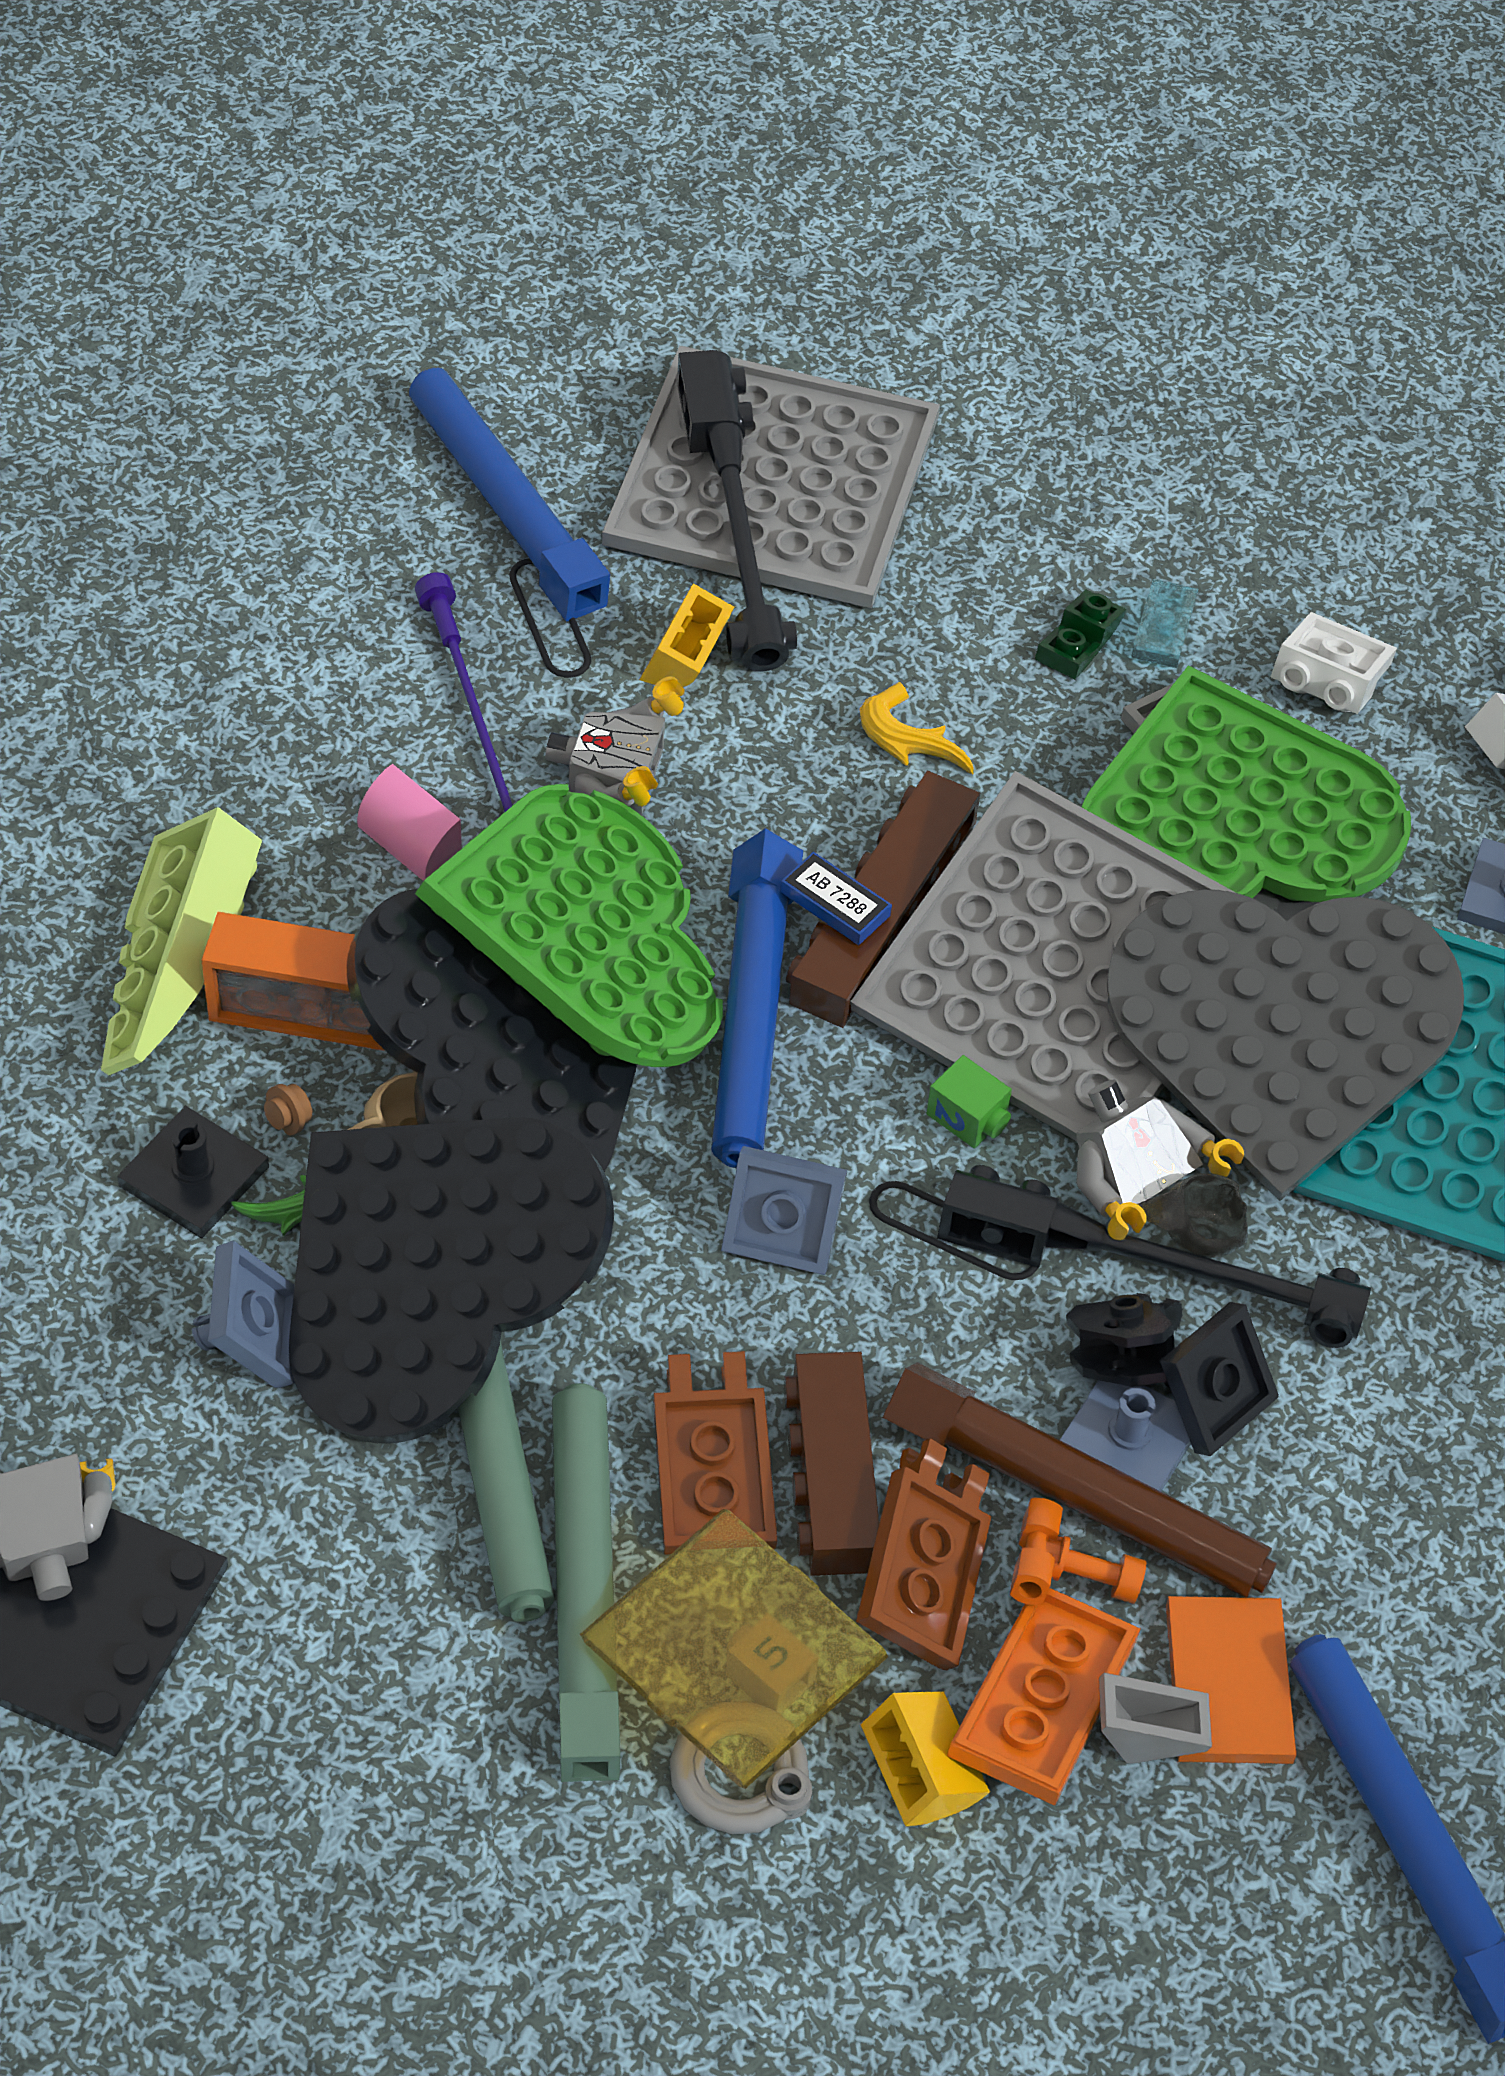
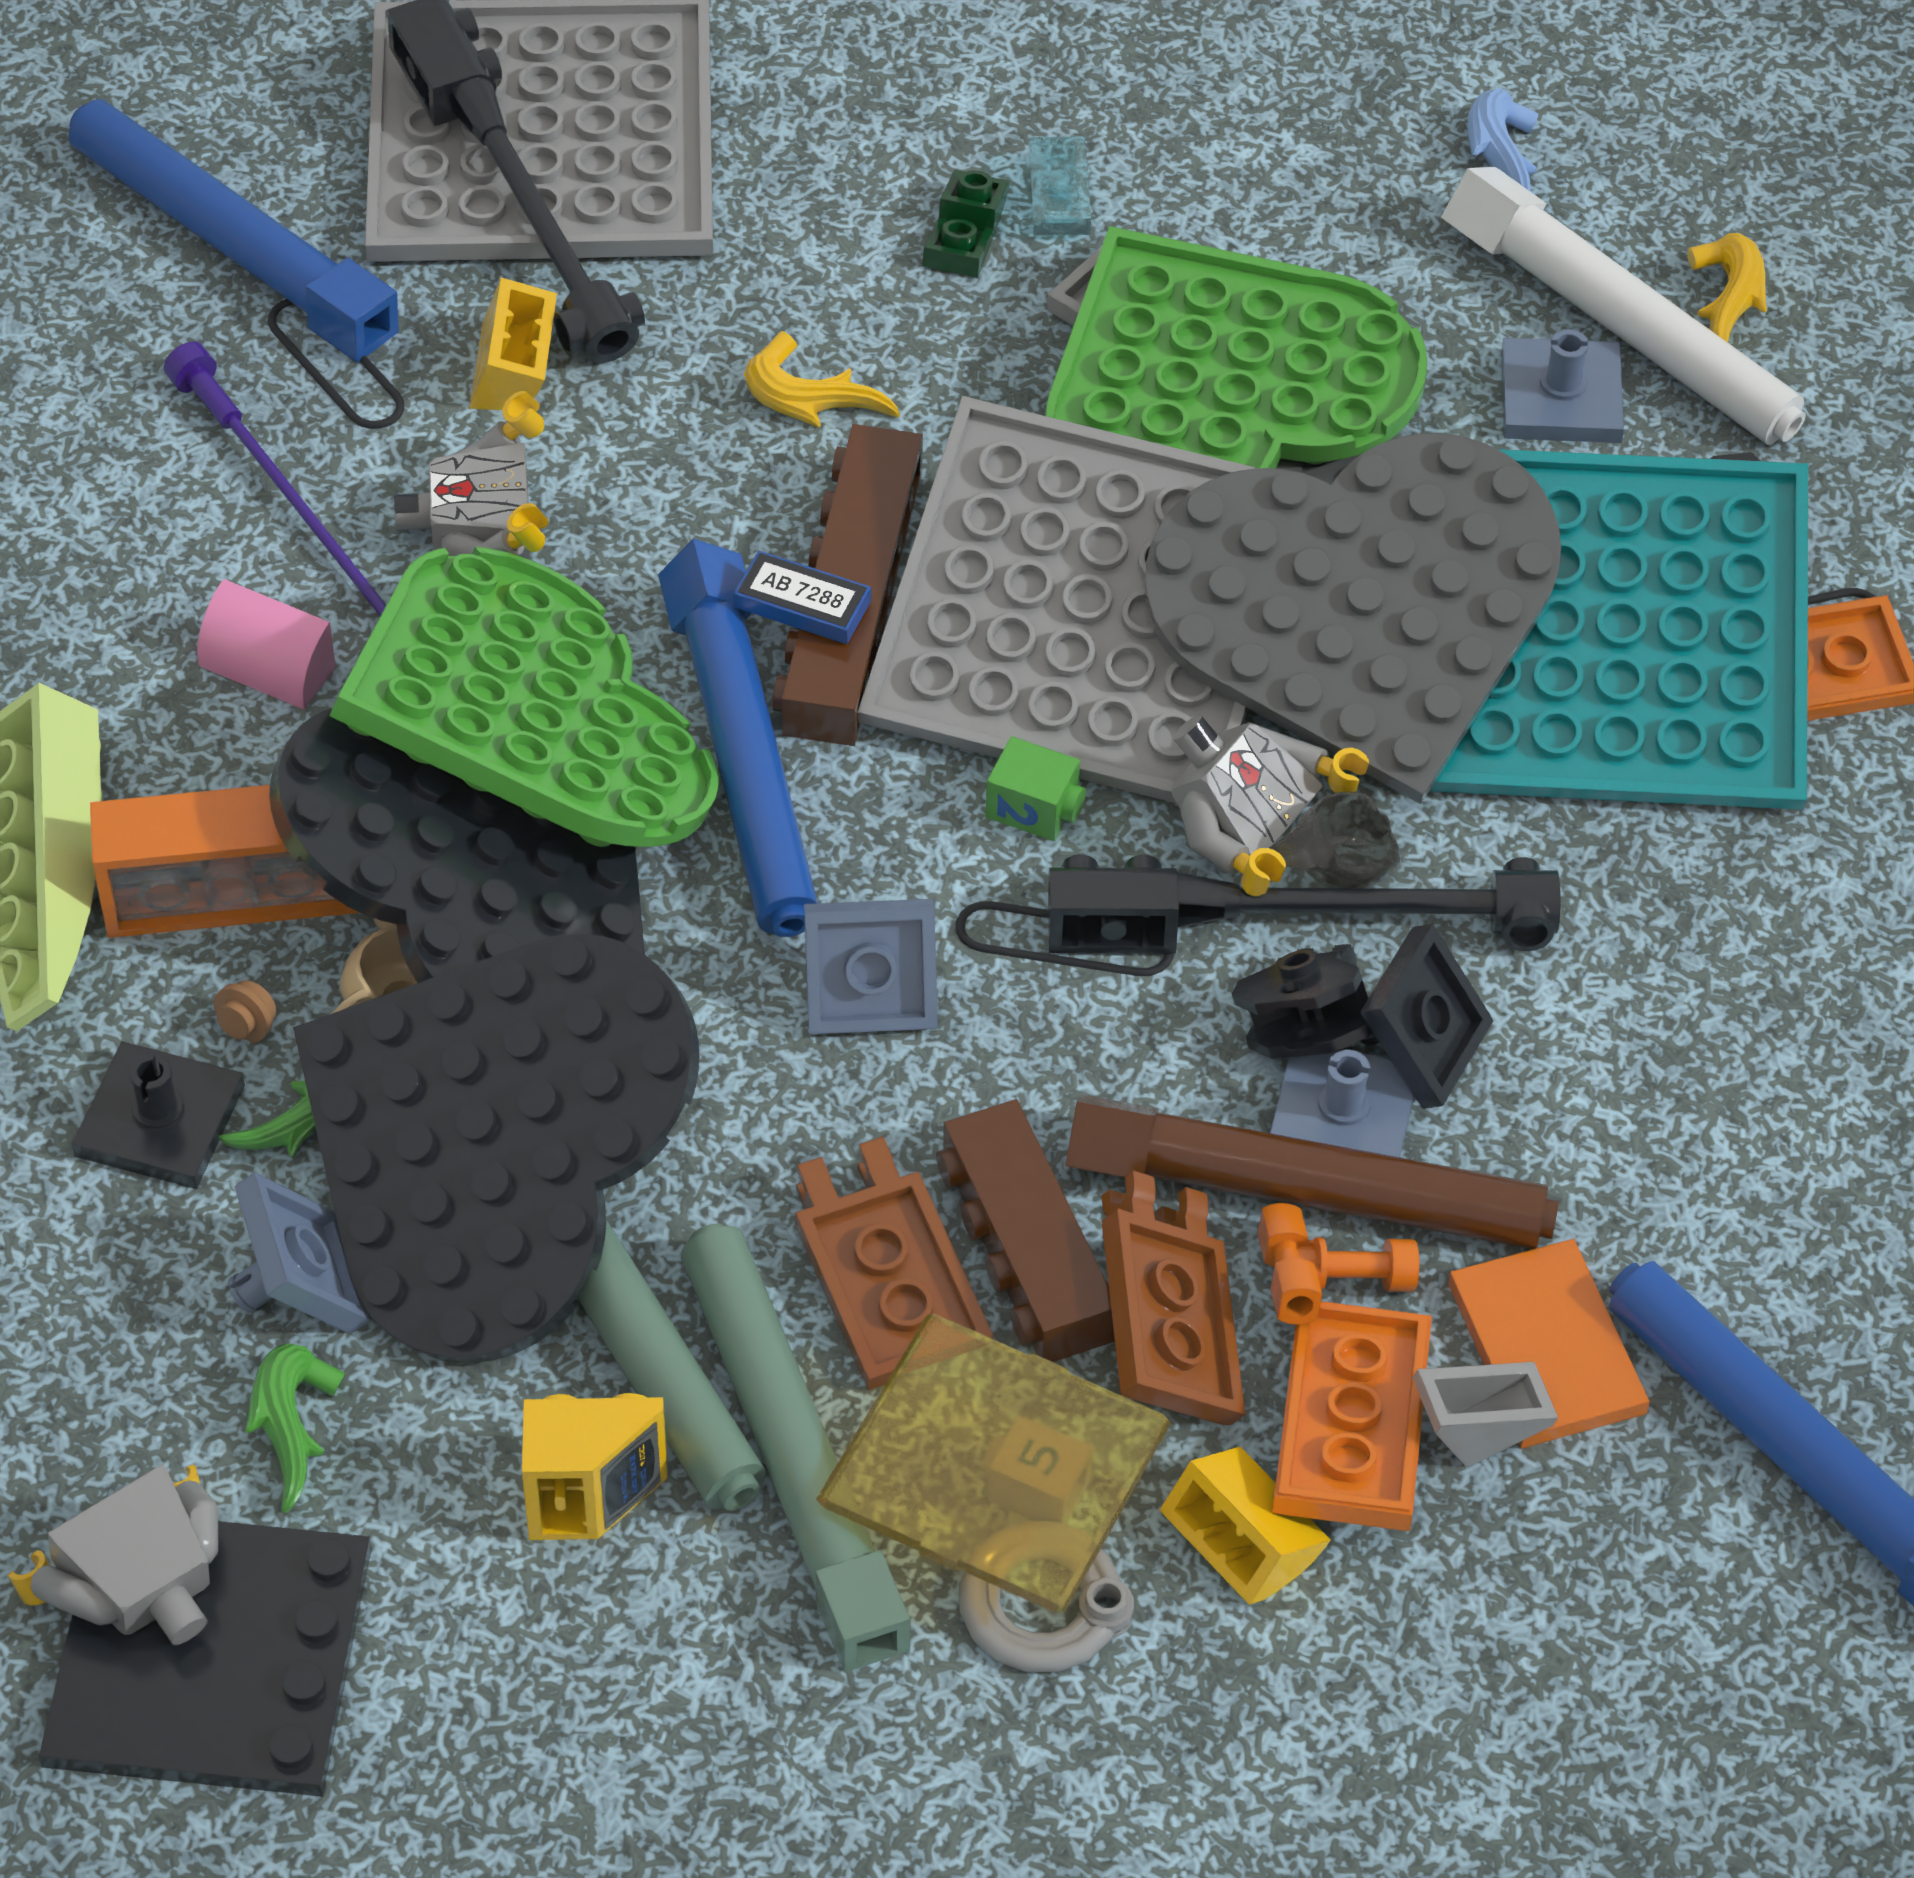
camera: 15 degrees left, 0 degrees up
(191, 1435) = (275, 1410): none -> bright green piece
(412, 1549) = (589, 1461): none -> yellow slope
(1332, 663) = (1267, 183): white plate -> none

